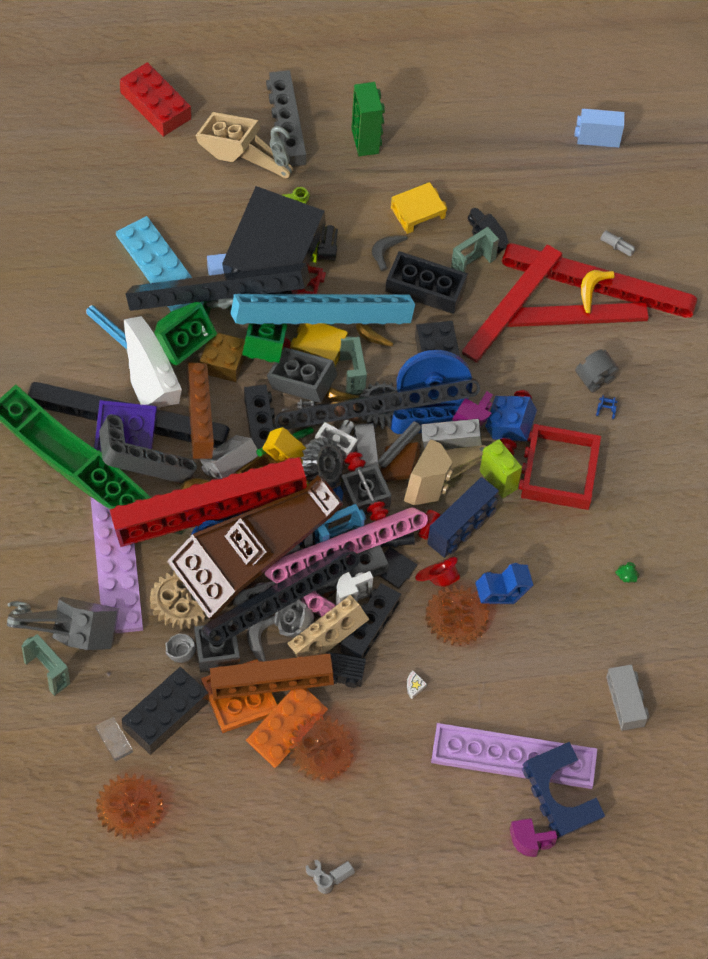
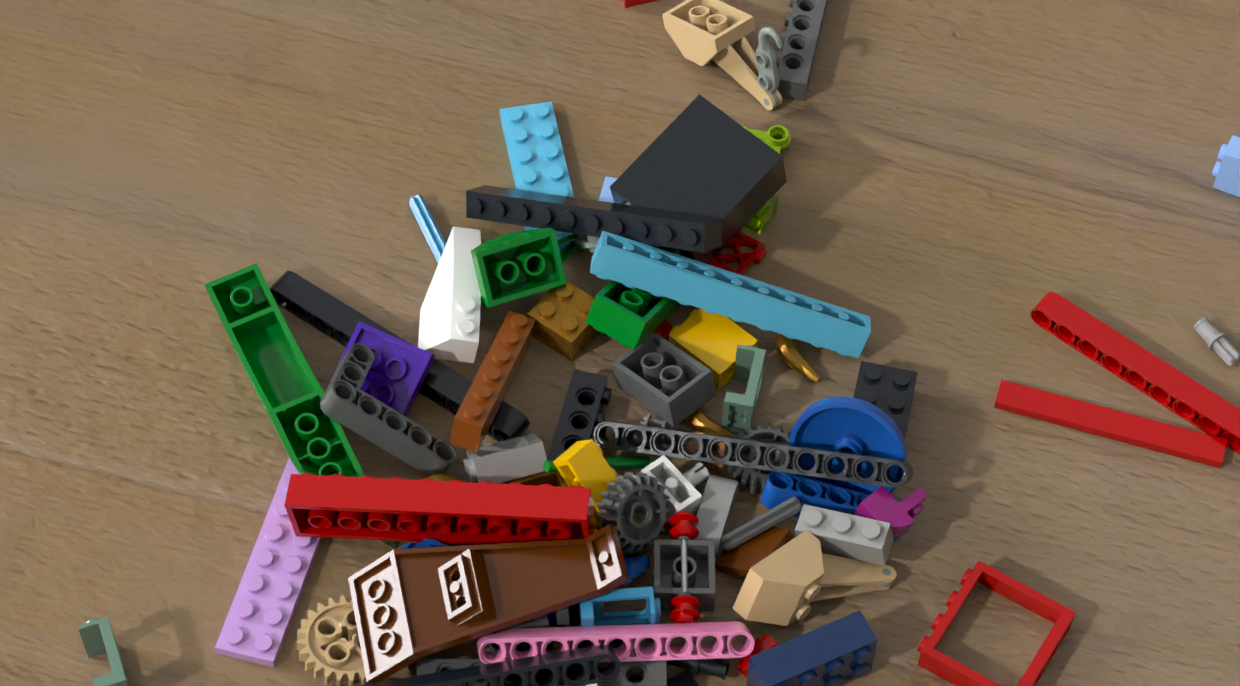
camera: 25 degrees right, 5 degrees down
(76, 622) = (181, 622): dark grey slope -> none
(327, 248) = (785, 217): black piece -> none
(367, 118) = (910, 59): green brick -> none
(382, 245) = (863, 239): dark grey piece -> none
(418, 206) = (938, 200): yellow panel -> none
(426, 282) = (904, 308): black brick -> none
(480, 221) = (1026, 265): black hinge -> none
(485, 244) = (1011, 283): sand green window -> none
(500, 468) = (898, 609): lime brick -> none
(511, 303) = (1019, 376): red tile -> none
(511, 418) = (946, 544): blue brick -> none
(589, 283) = (1146, 384): yellow piece -> none
(597, 370) = (1110, 513): dark grey brick -> none
(613, 408) = (1098, 568): blue piece -> none

